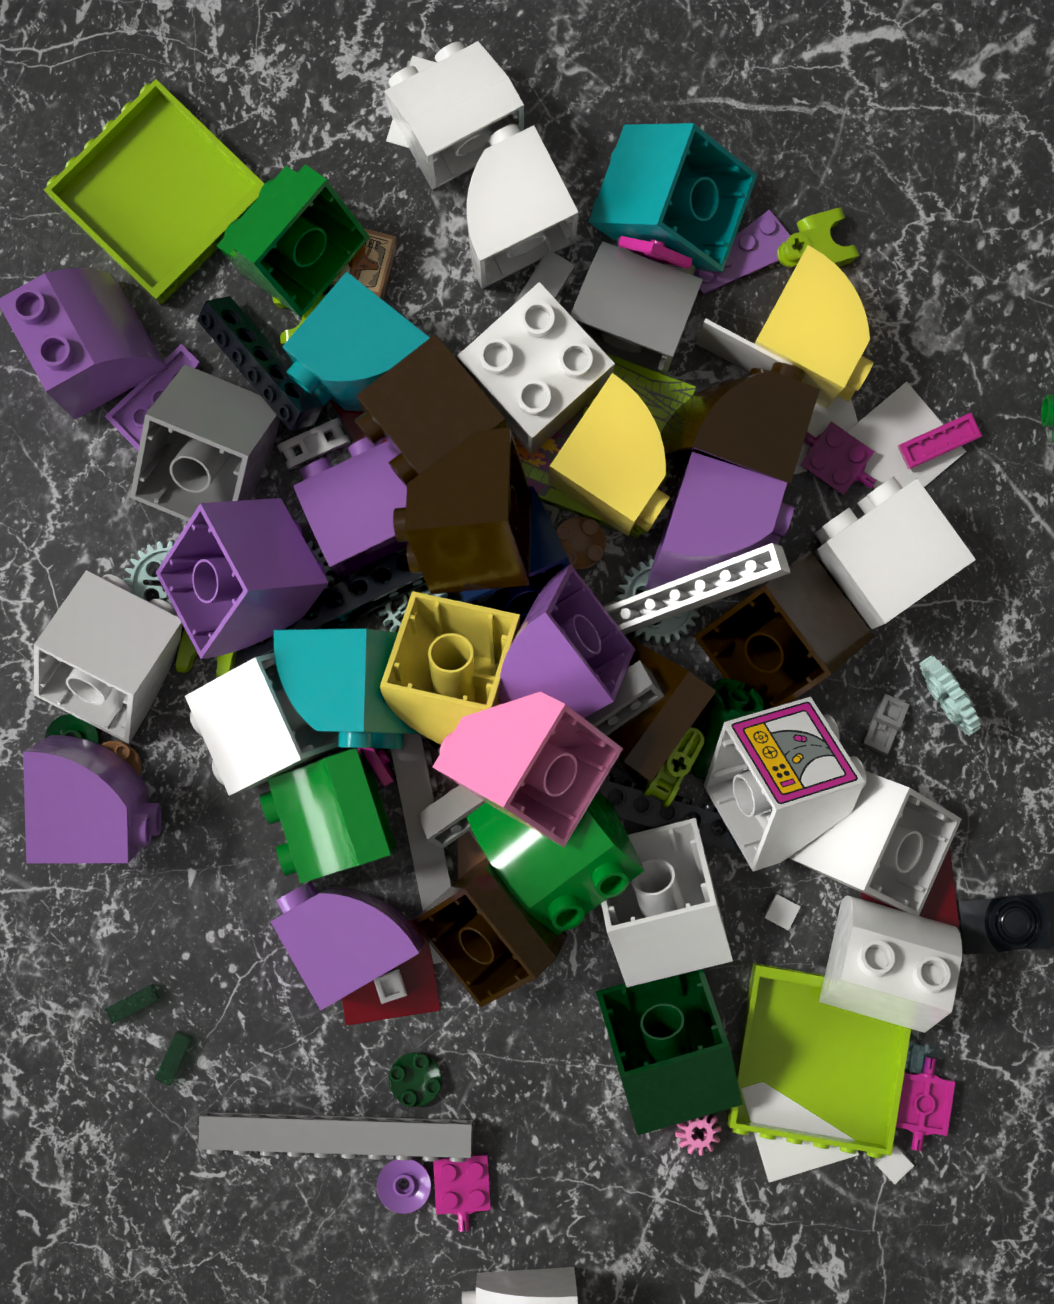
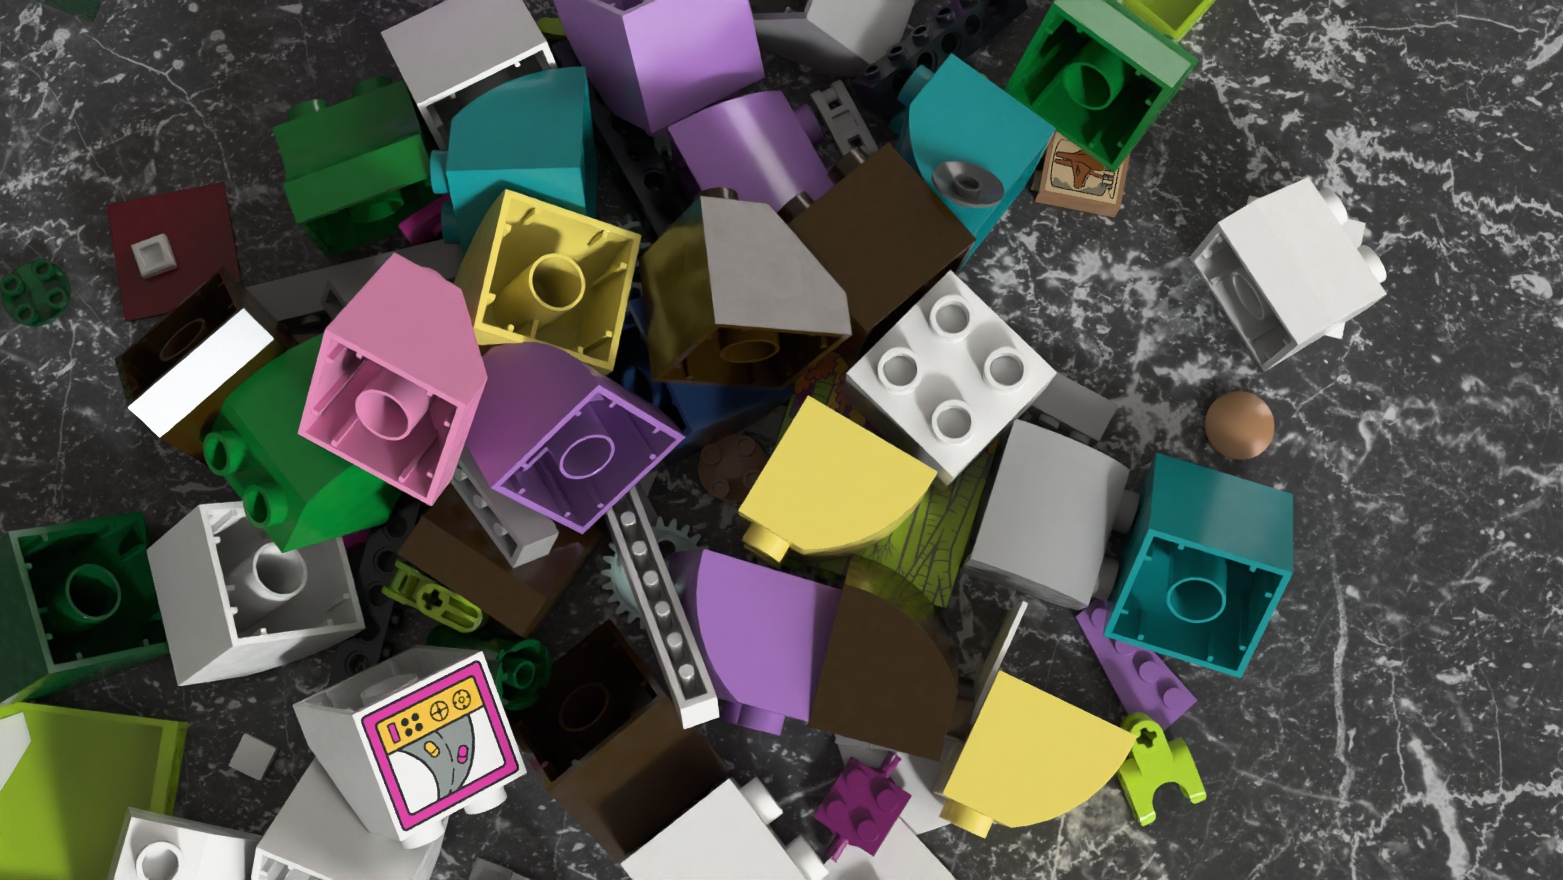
camera: 90 degrees right, 5 degrees down
(342, 939) = (201, 180): medium lavender brick -> none
(393, 337) = (967, 184): none -> dark grey dish
(516, 206) = (1166, 348): white brick -> none
(570, 159) = (1239, 425): none -> medium nougat dish
(655, 251) = (1120, 539): dark pink plate -> none

